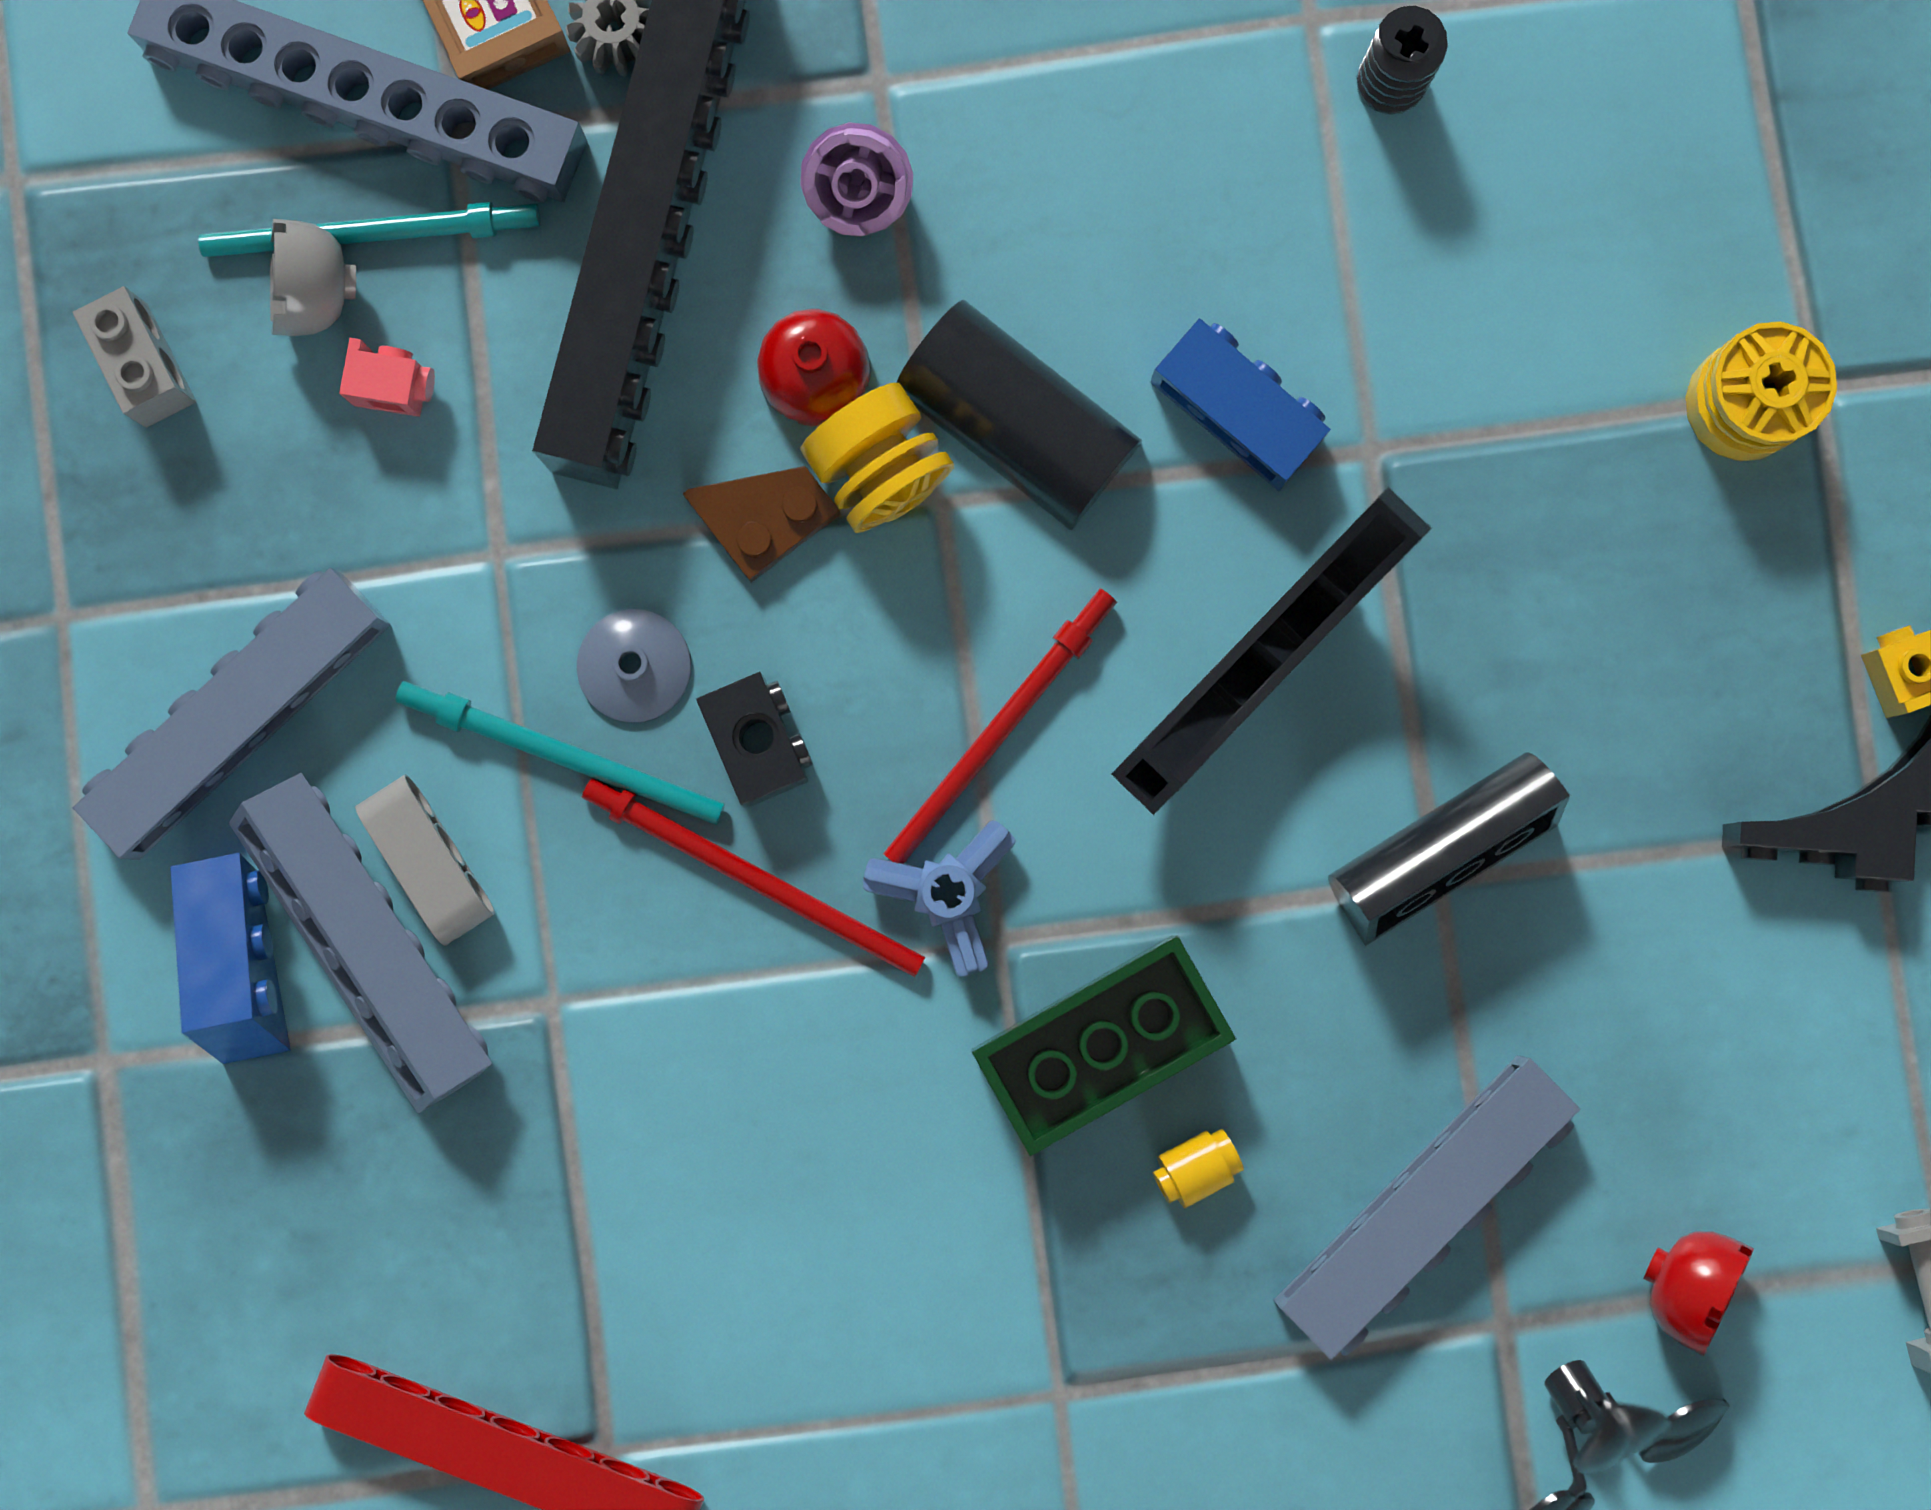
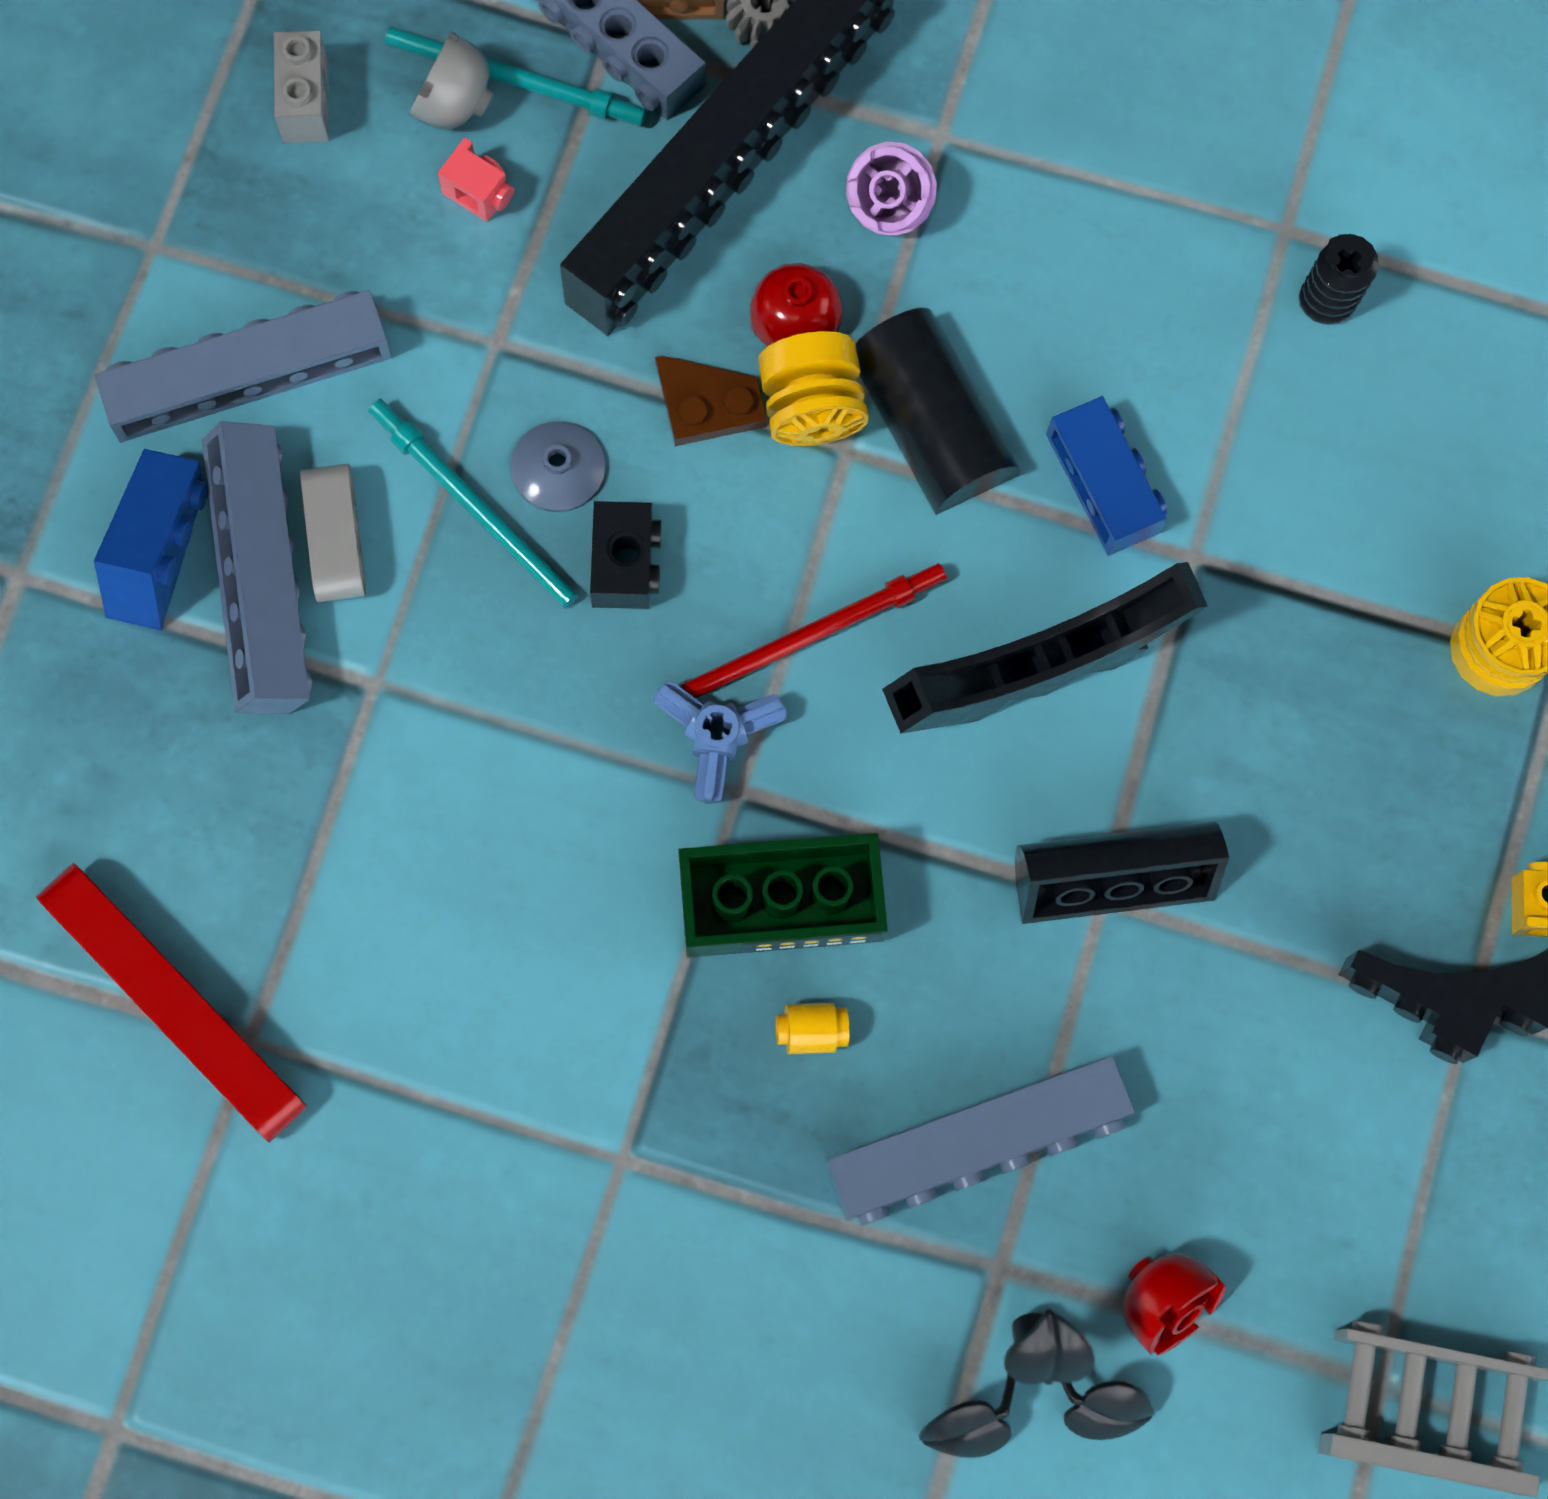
camera: 20 degrees right, 10 degrees down
(624, 807) = (500, 563): red bar -> none

